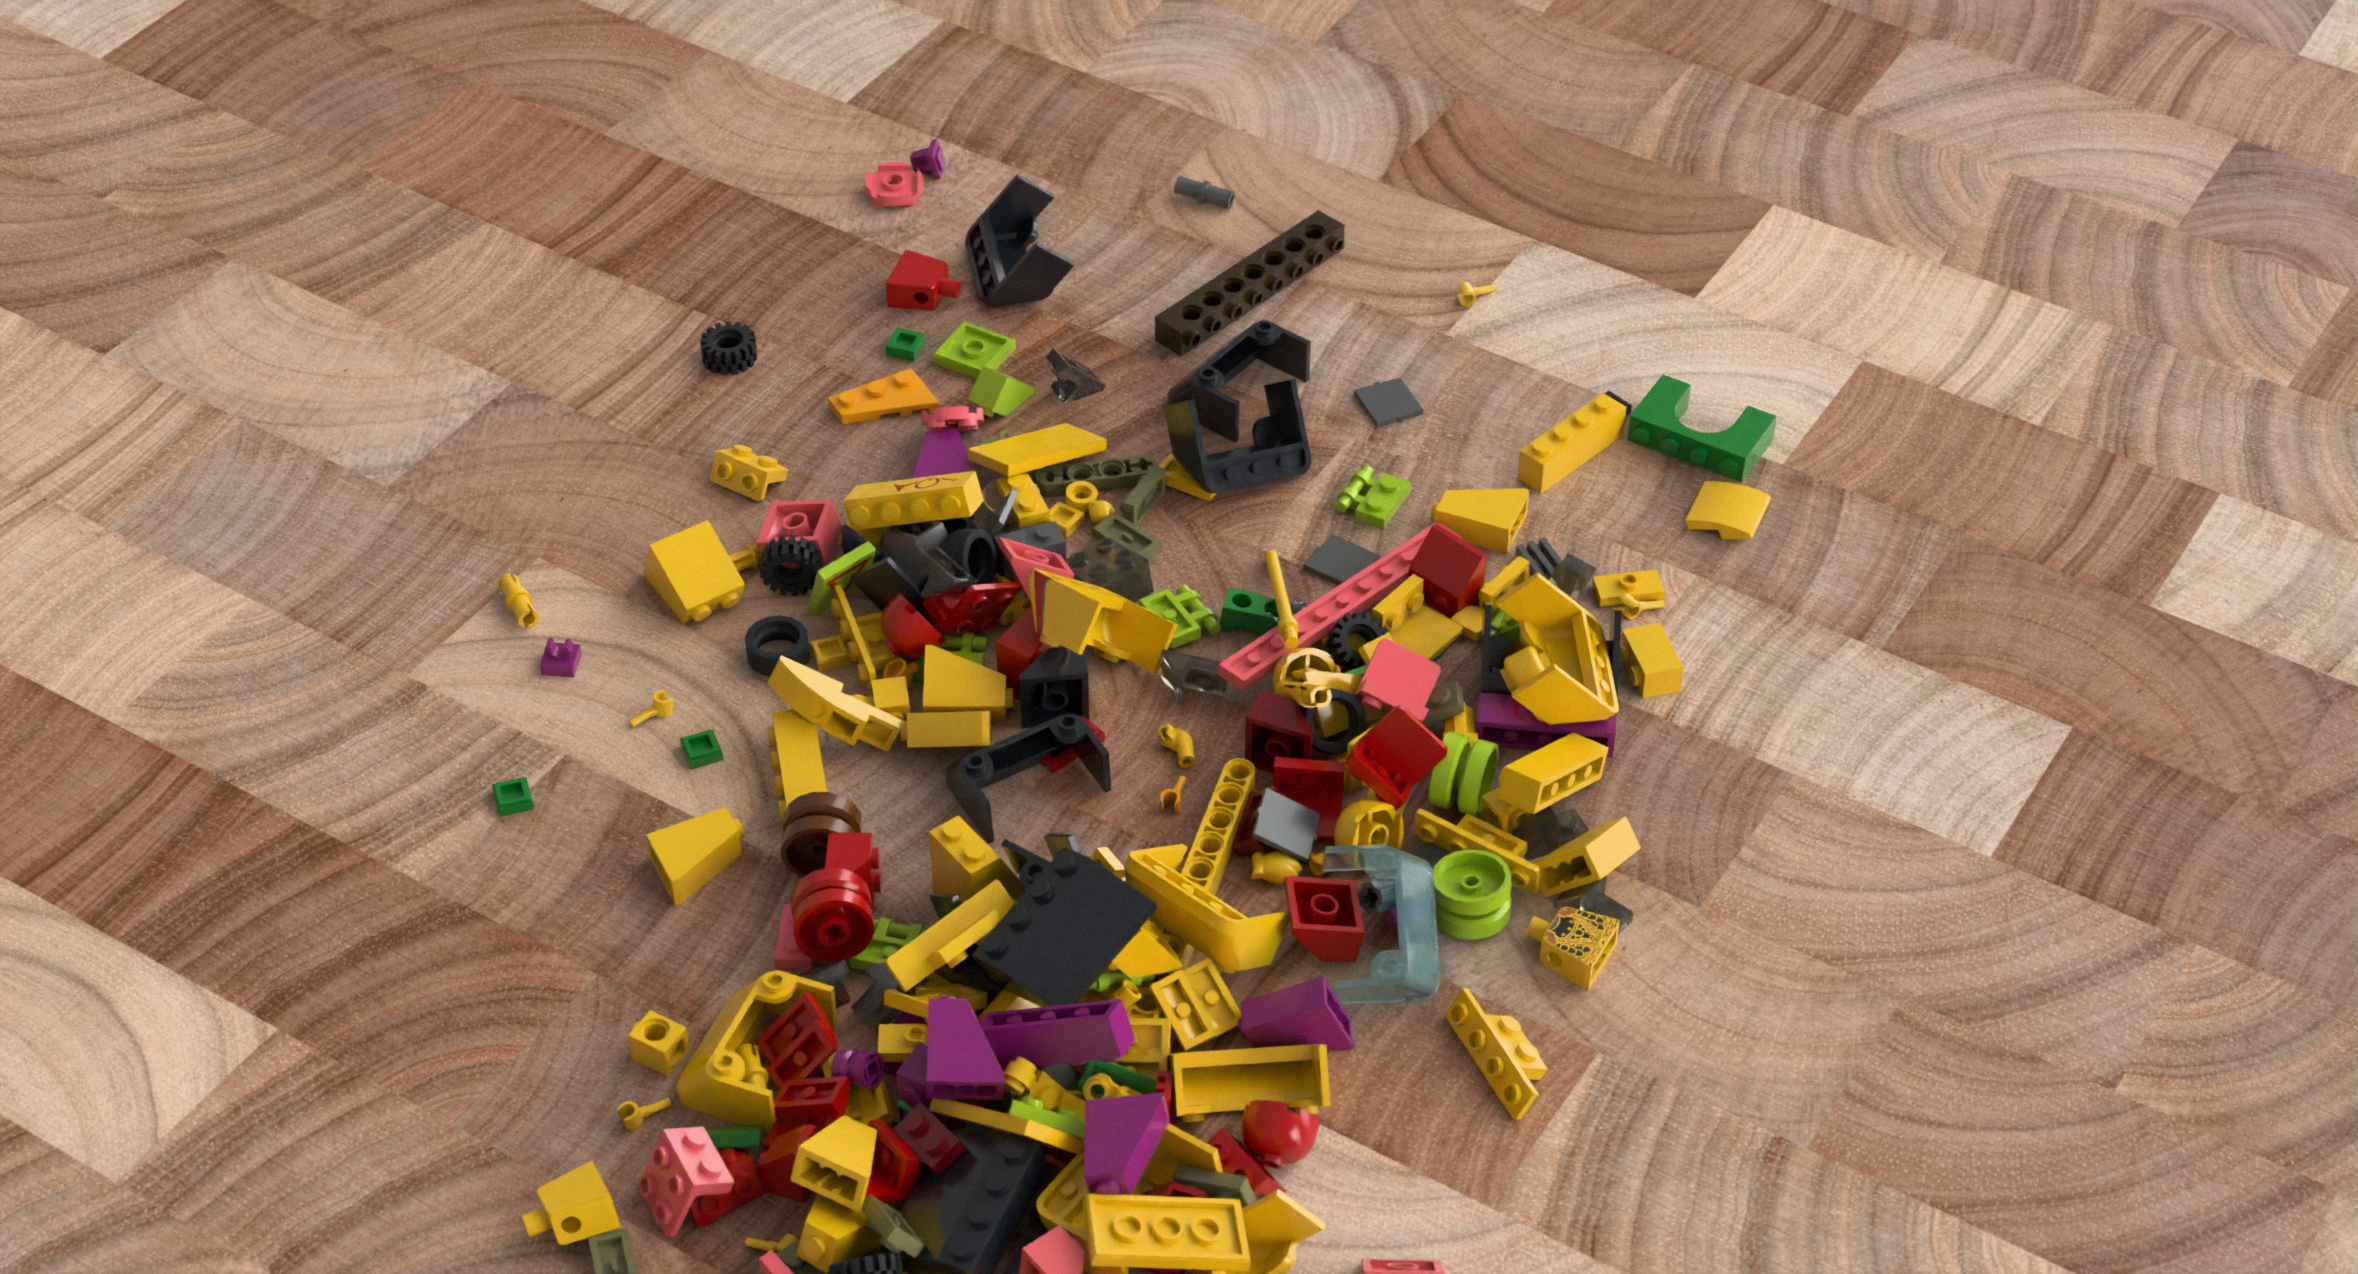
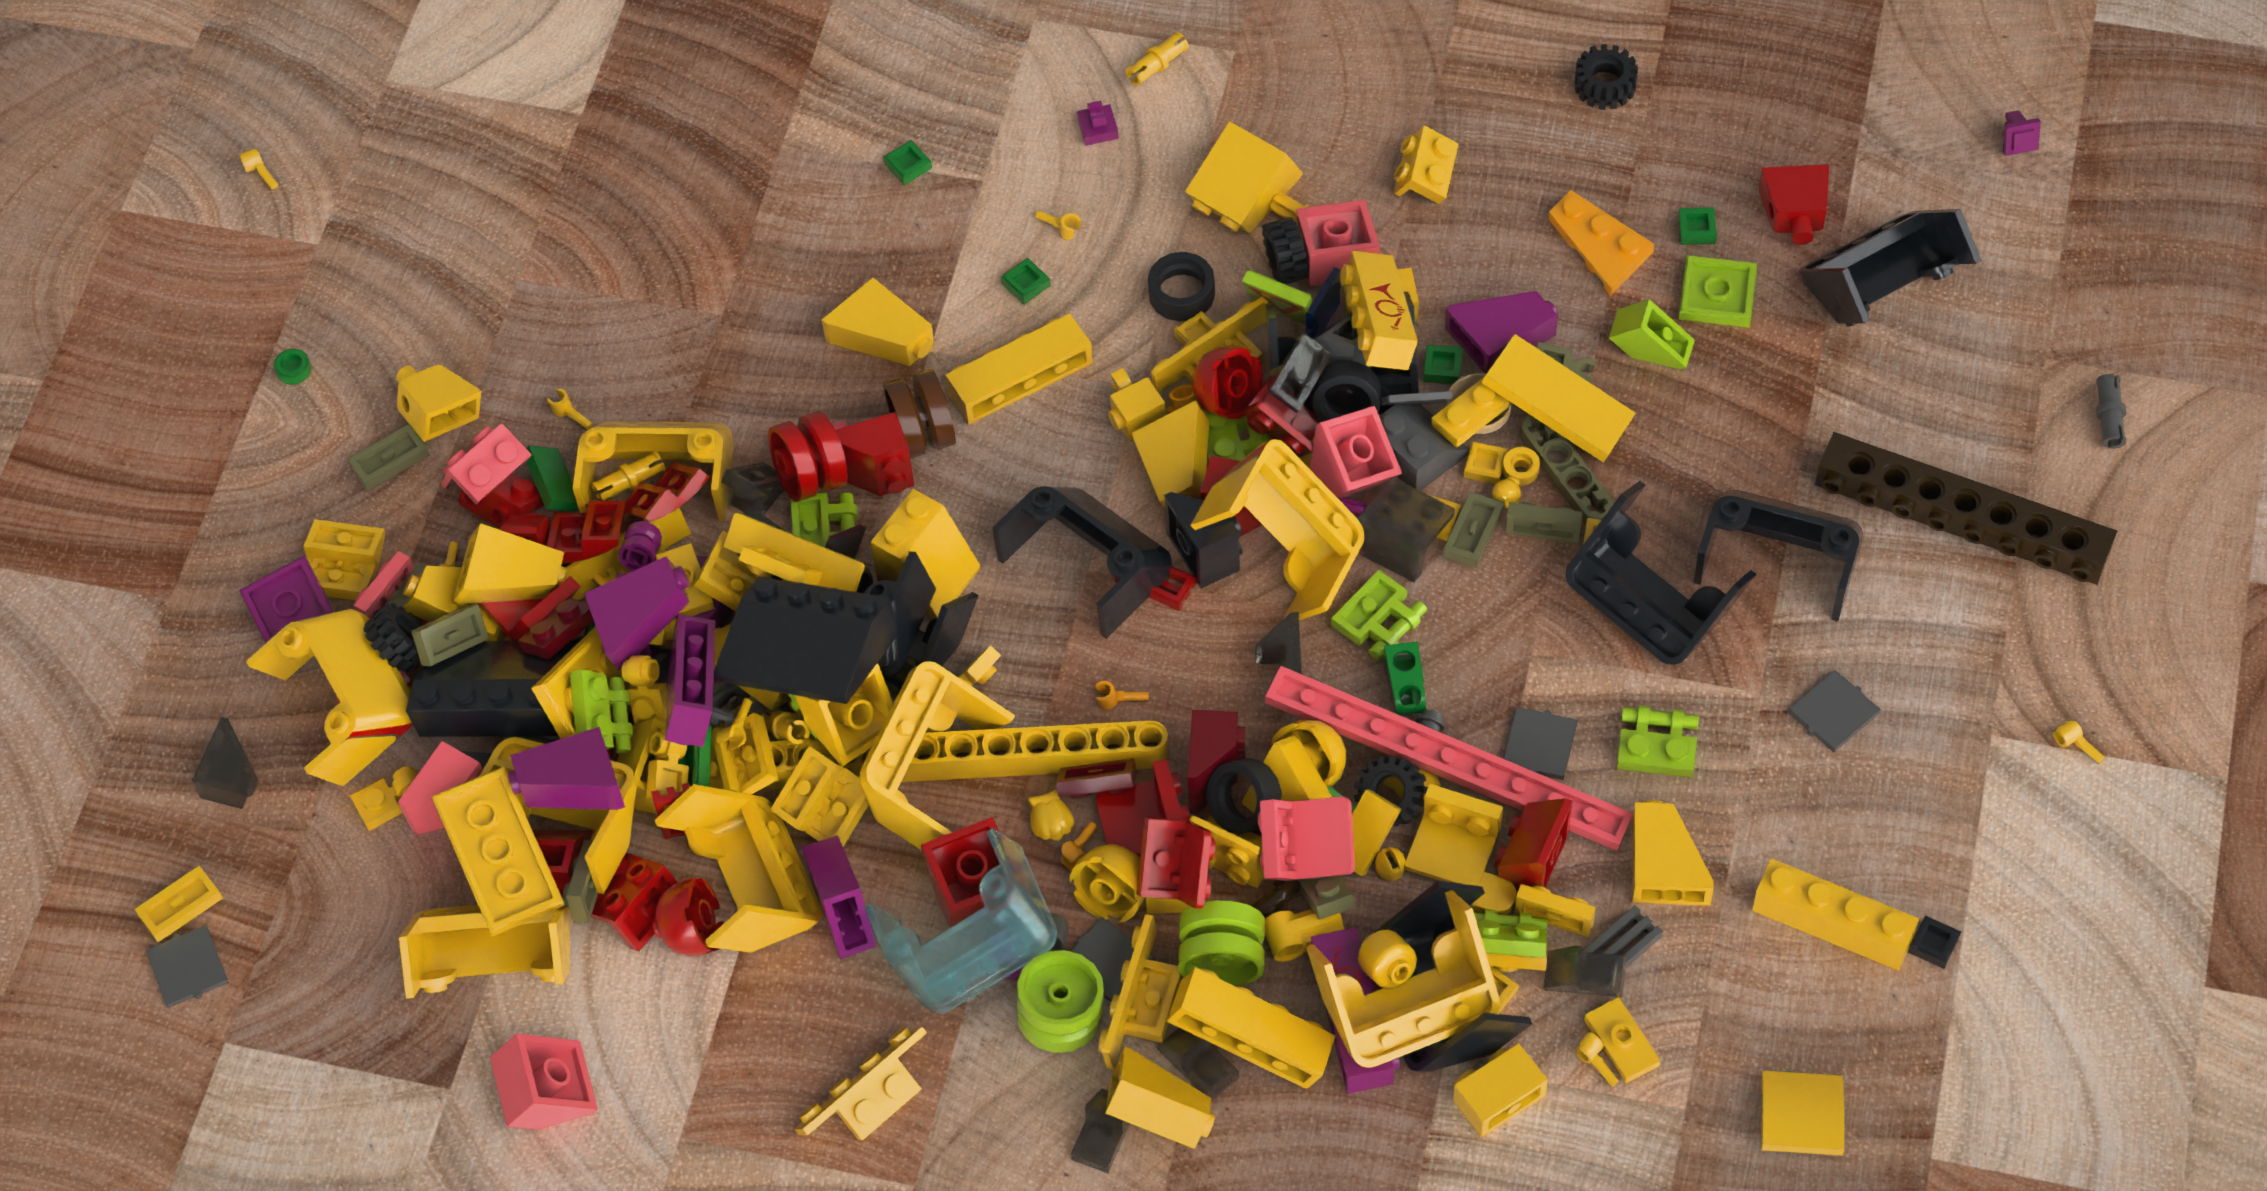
camera: 75 degrees right, 15 degrees up
(658, 1043) = (643, 401): yellow brick -> none
(823, 704) = (1088, 344): yellow slope -> none
(905, 191) = (1954, 132): coral plate -> none
(947, 729) = (1111, 471): yellow slope -> none
(952, 417) = (1574, 308): coral plate -> none
(1073, 378) = (1710, 392): clear smoke slope -> none
(1179, 742) = (1194, 675): yellow arm -> none
(1285, 825) = (1089, 802): piece -> none
(1287, 624) = (1357, 710): yellow bar -> none
(1305, 693) = (1235, 752): yellow pin -> none
(1575, 943) = (1036, 1121): yellow torso -> none
(1726, 452) = (1906, 1091): green arch -> none

